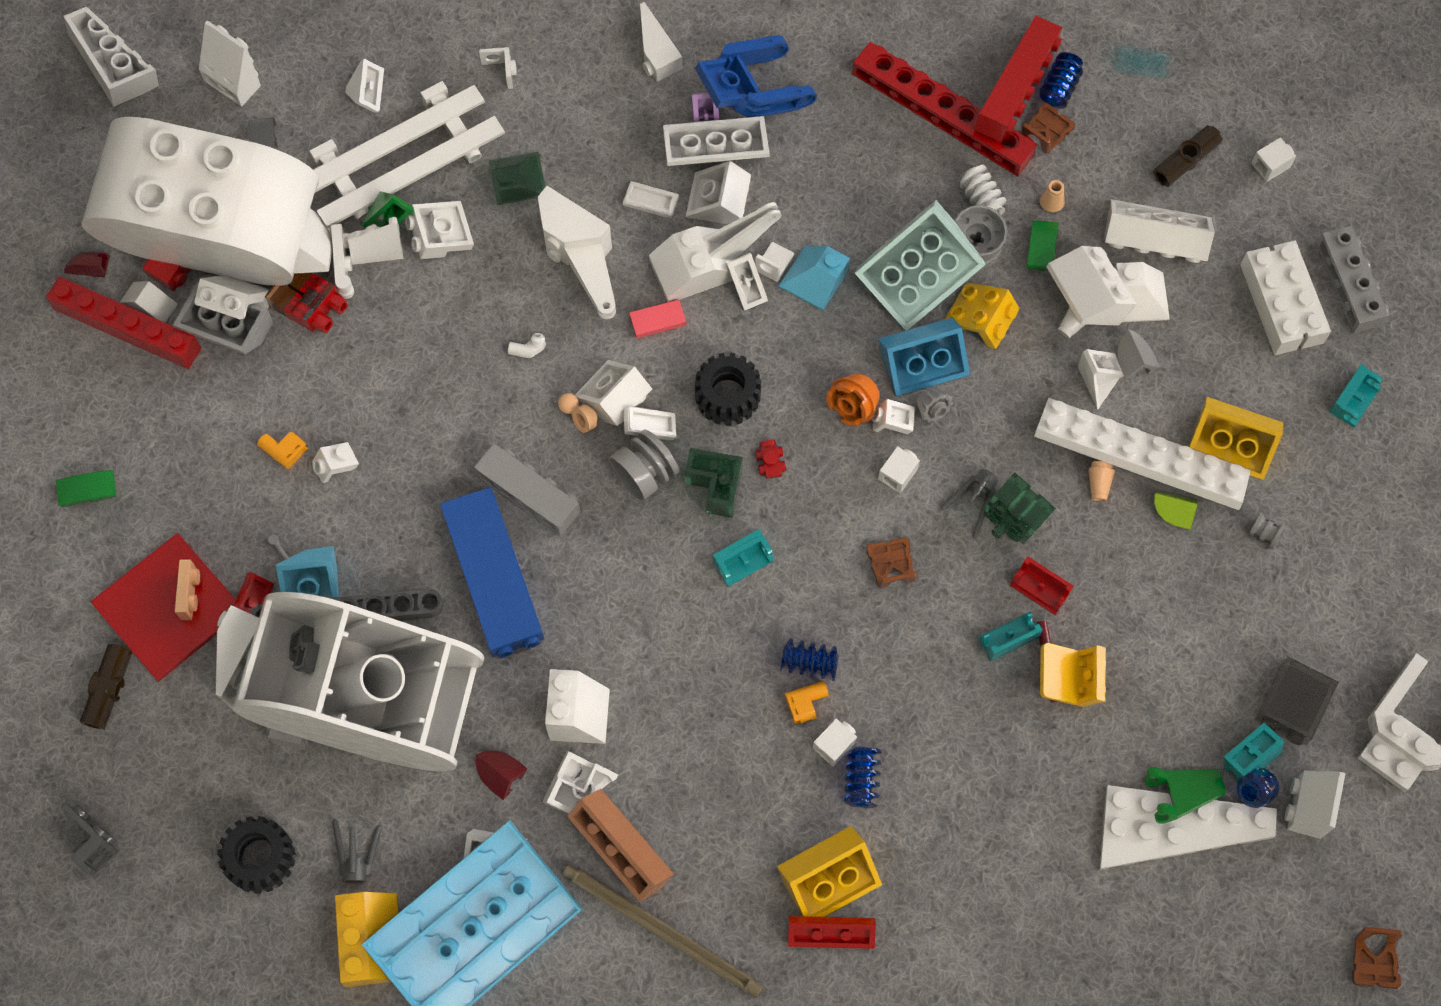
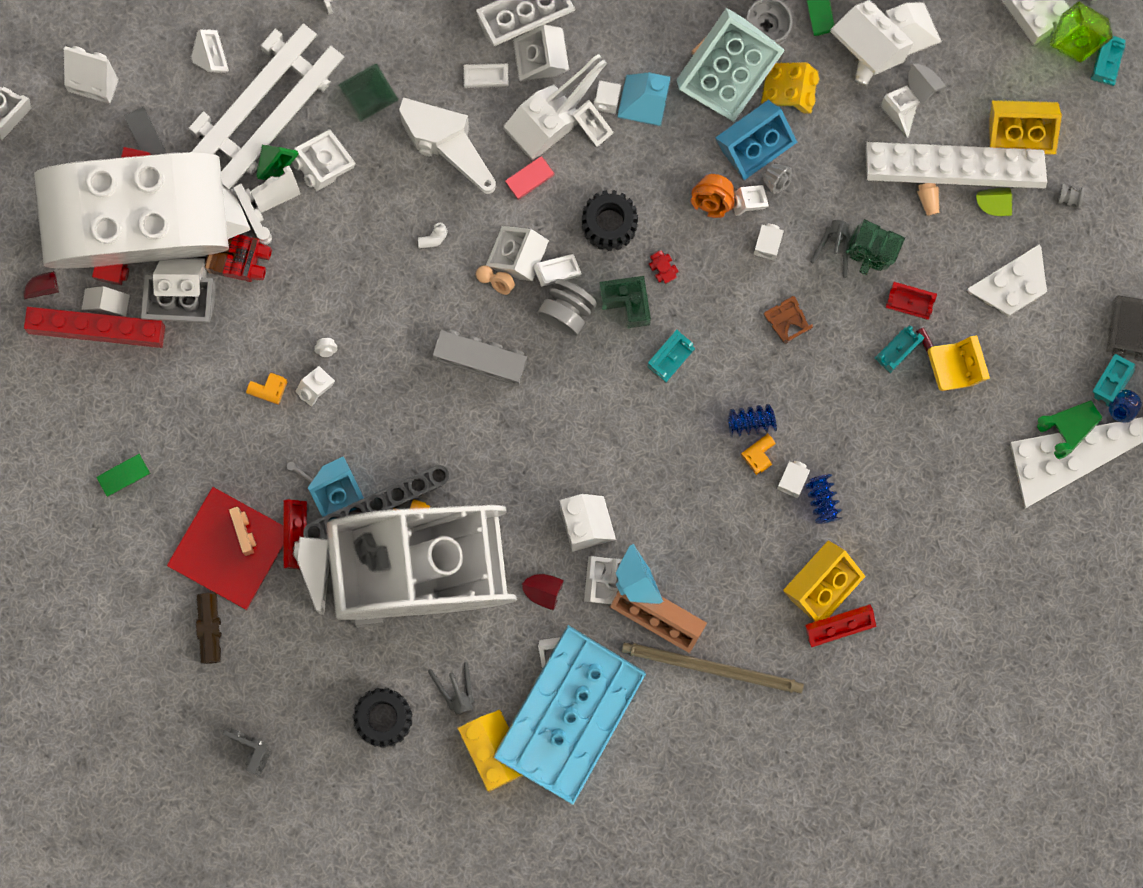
camera: 20 degrees left, 10 degrees up
(362, 424) = (325, 347): none -> white plate
(492, 573) = (477, 434): blue brick -> none
(608, 792) = (637, 579): none -> medium azure slope
(1168, 607) = (1014, 283): none -> white wing
(1333, 353) = (1081, 32): none -> clear neon green slope

